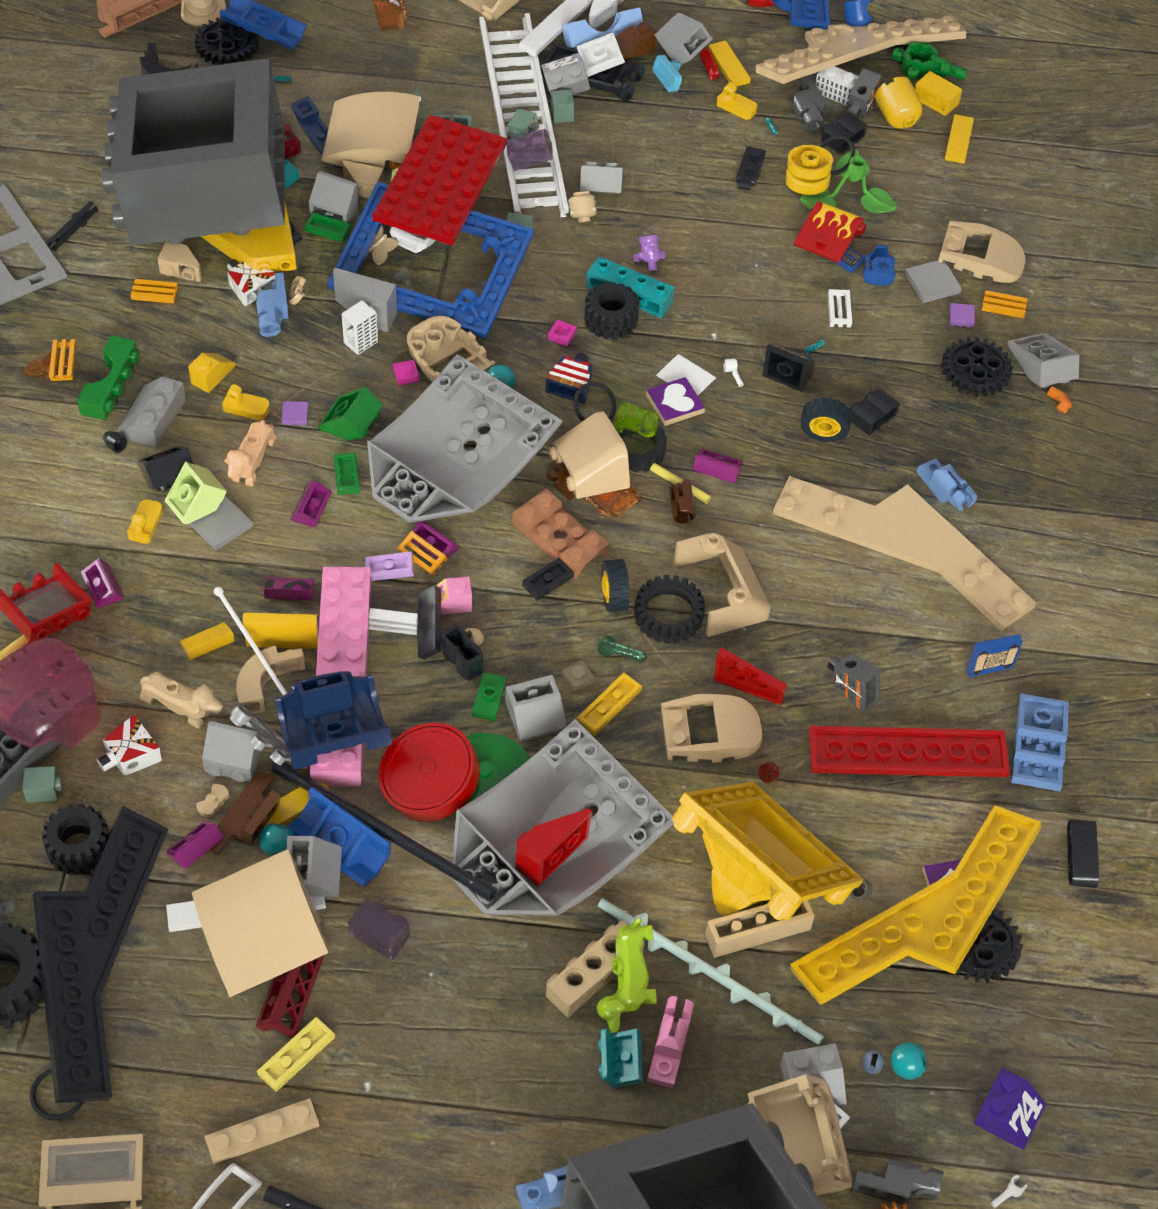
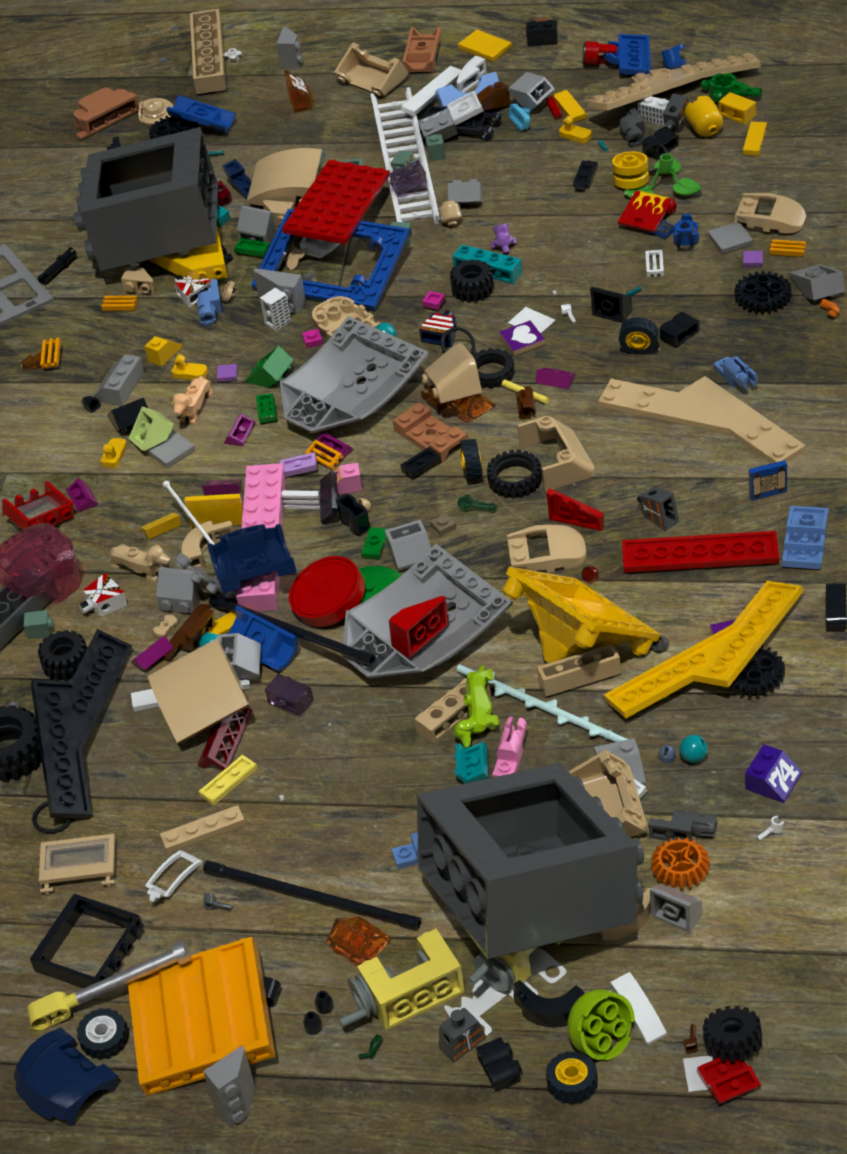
camera: 10 degrees right, 10 degrees down
(99, 397) = (78, 375): green arch -> none
(609, 704) = (469, 539): yellow tile -> none
(636, 419) = (488, 349): clear neon green leg -> none

